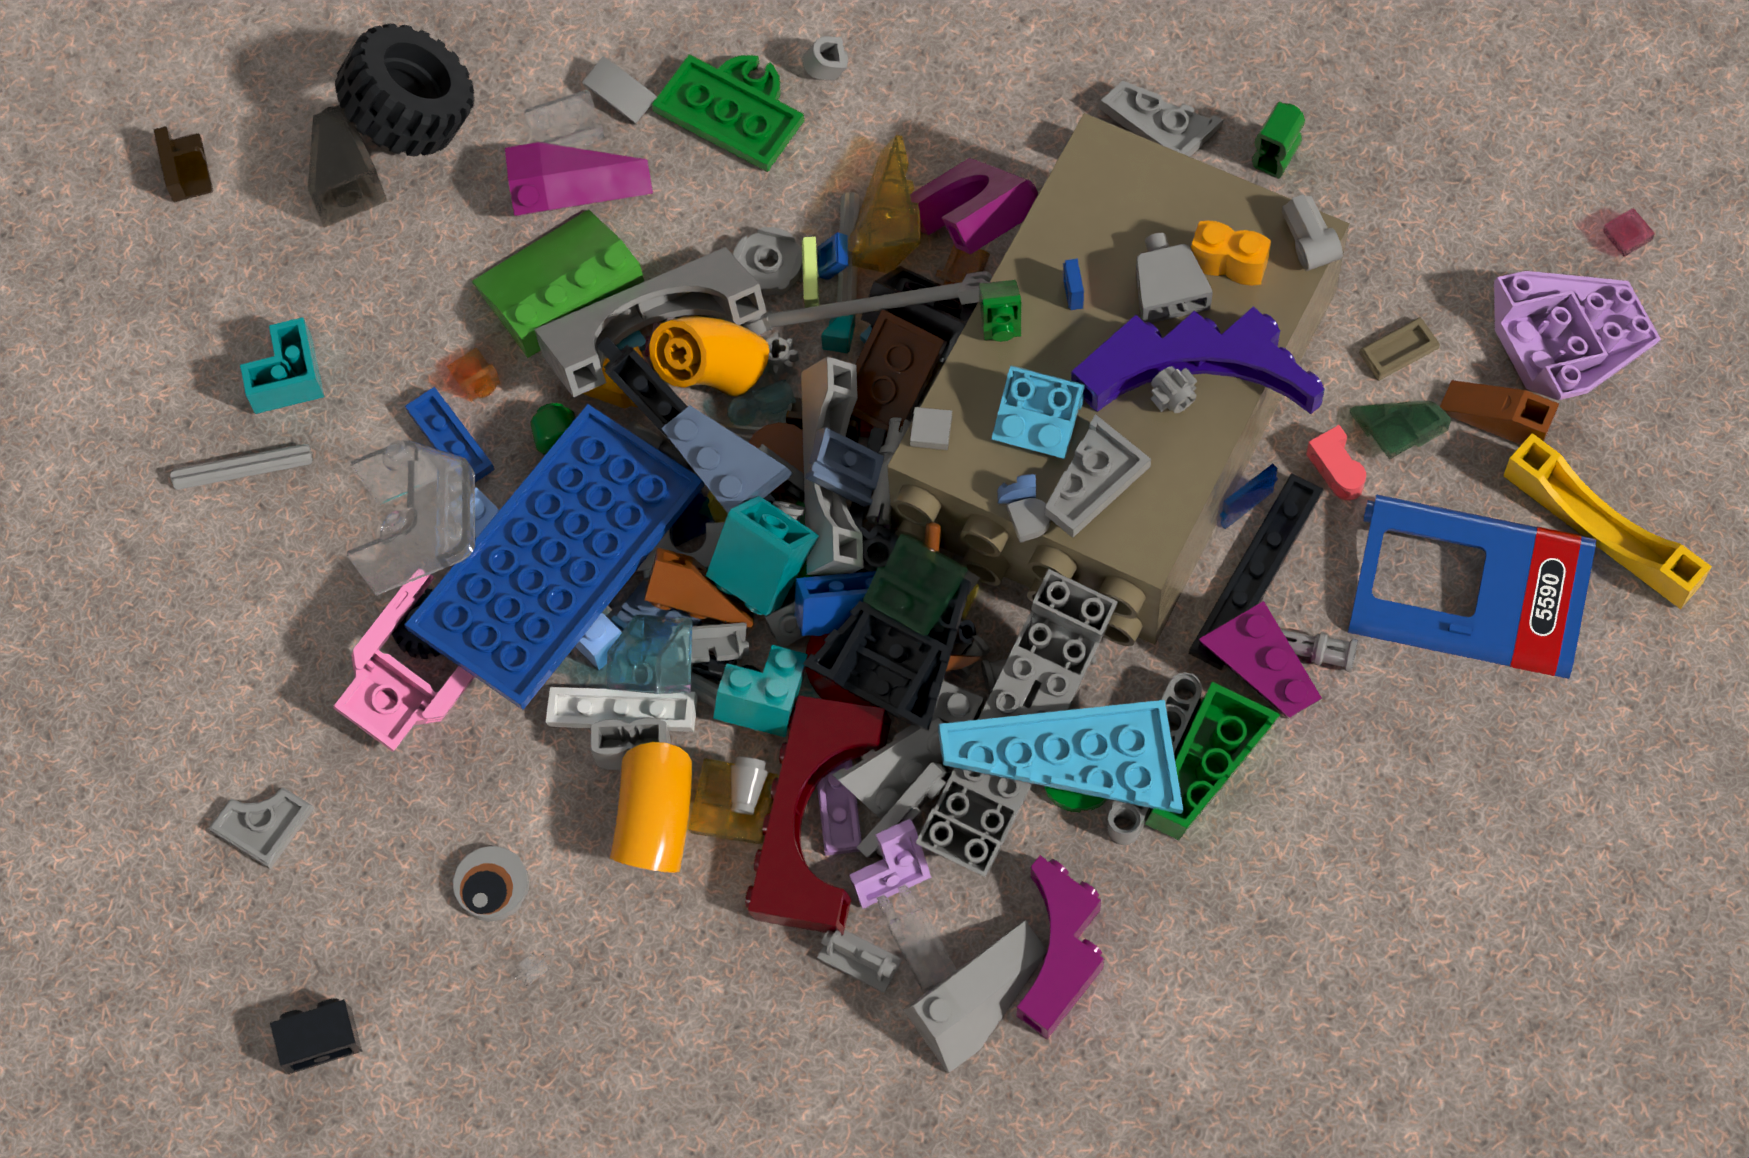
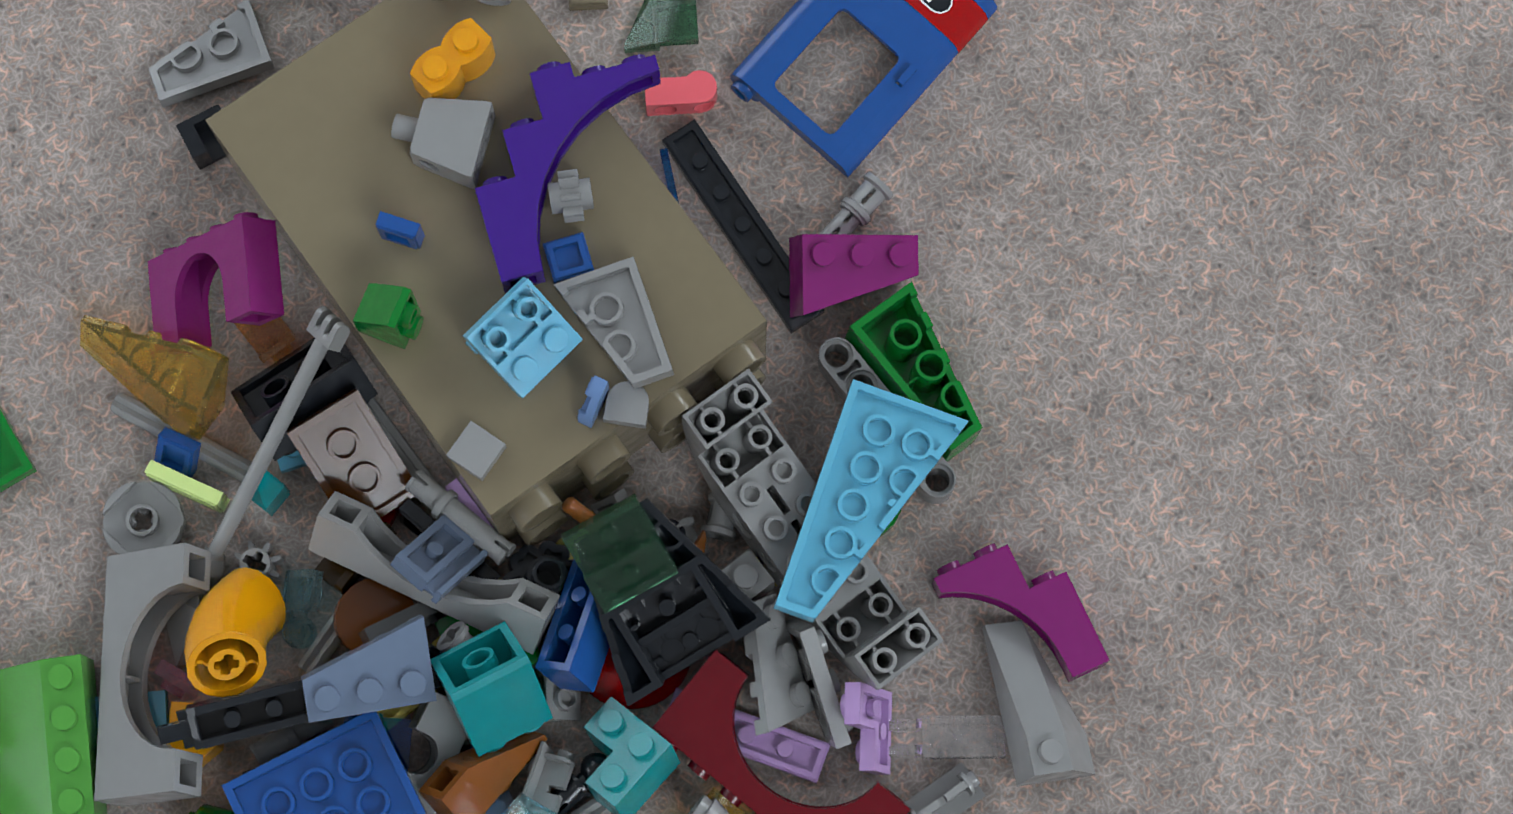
camera: 70 degrees left, 10 degrees up
(1125, 416) = (568, 257): none -> blue tile

